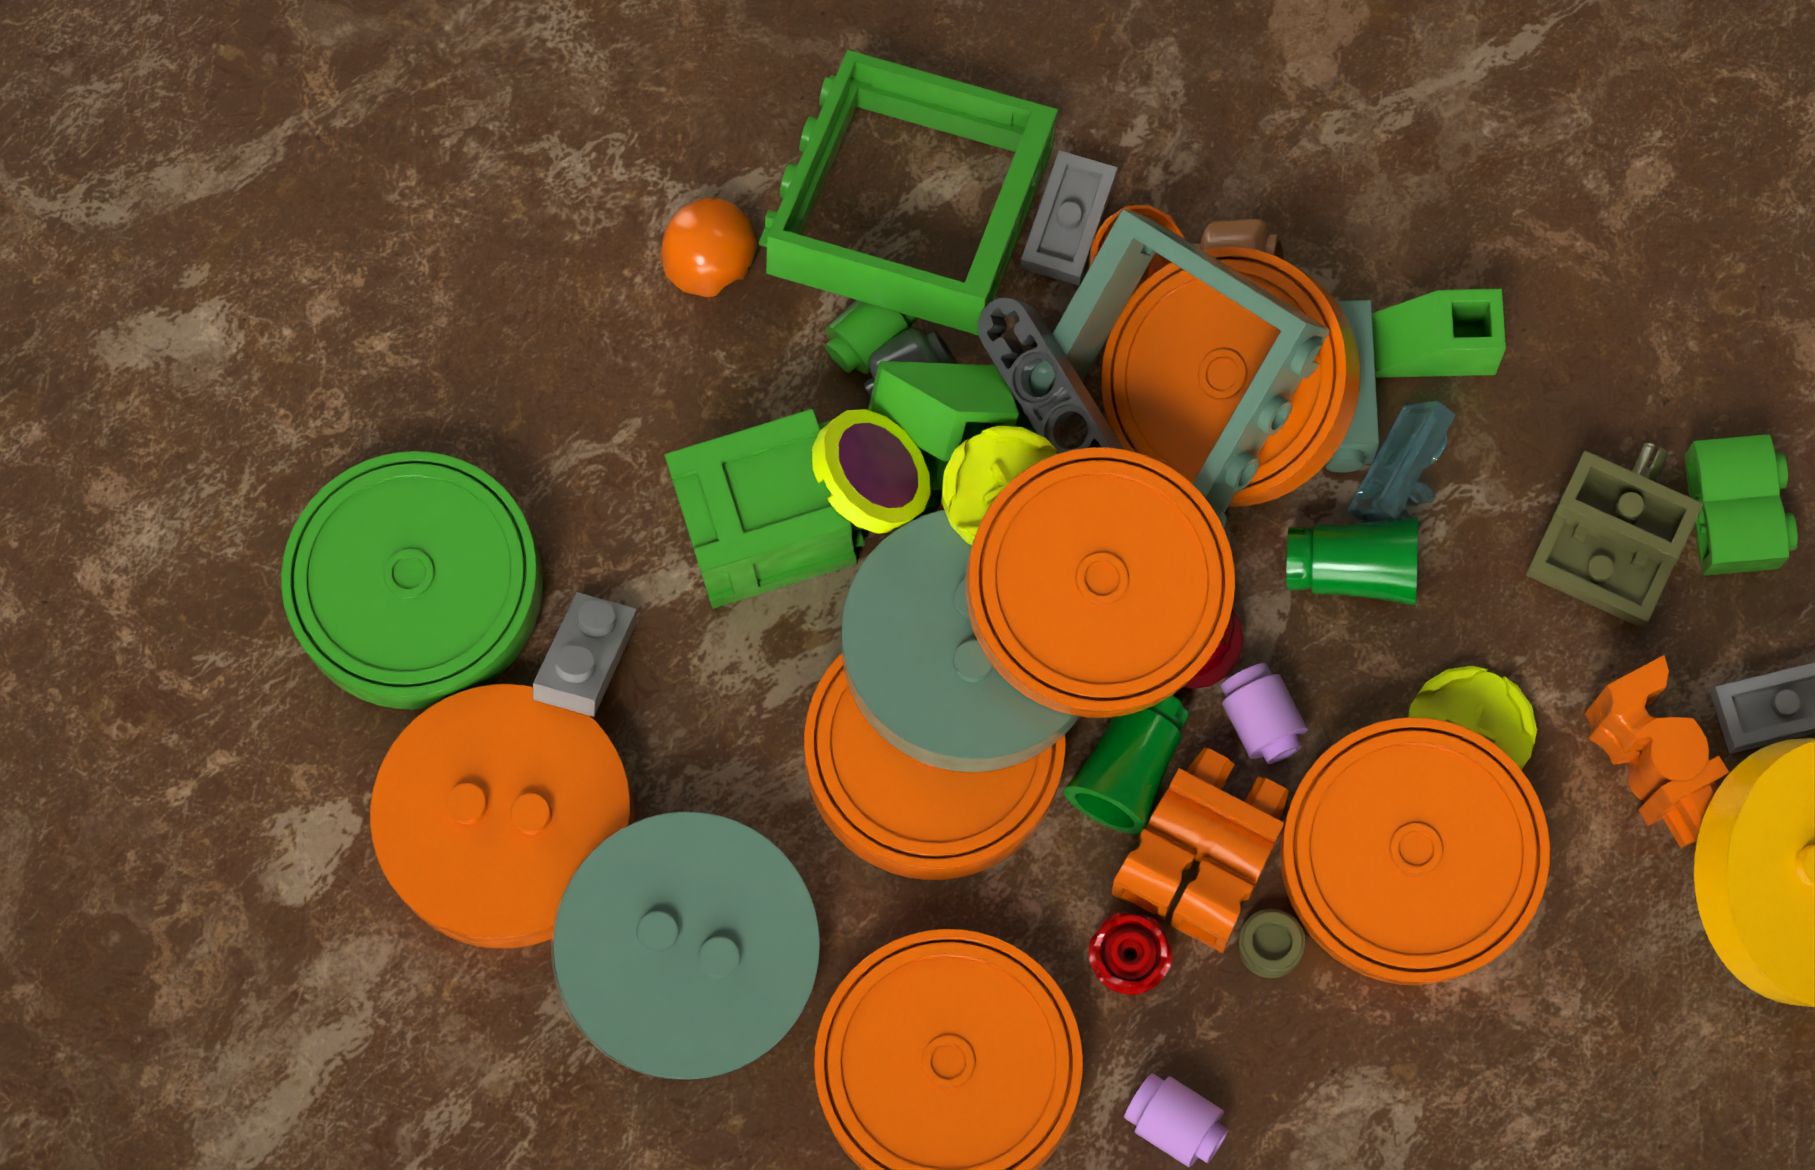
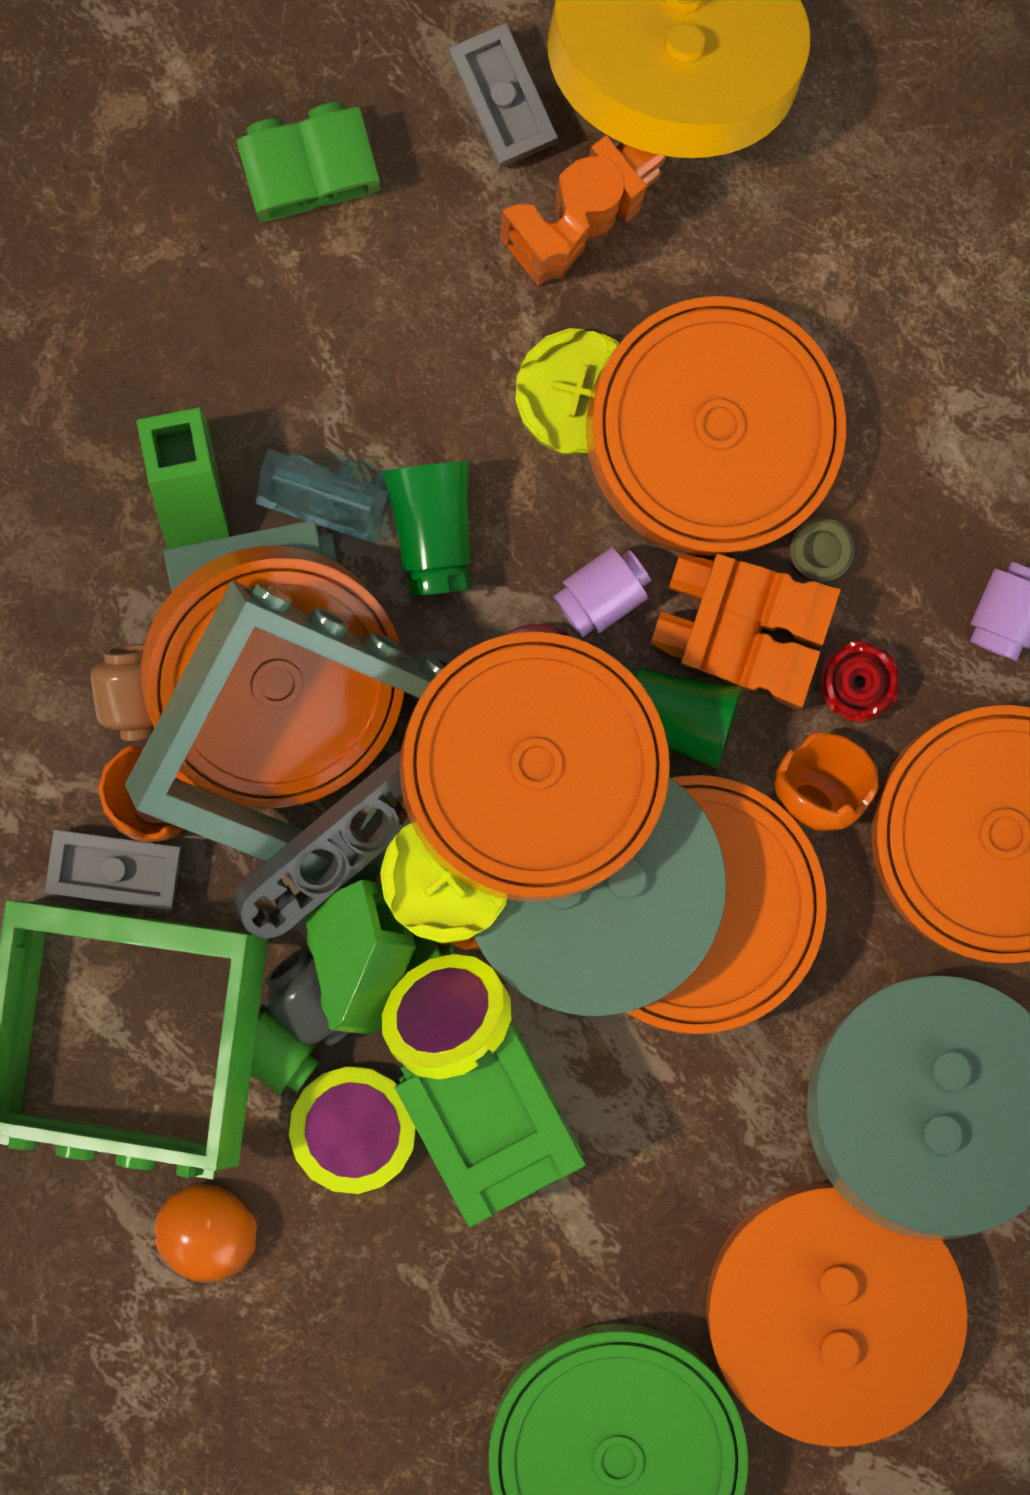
camera: 100 degrees left, 15 degrees up
(584, 654) = (663, 1267): light grey plate -> none
(776, 380) = (351, 1130): none -> tile
(1033, 895) = (826, 782): none -> orange hair
(1616, 536) = (361, 277): olive plate -> none

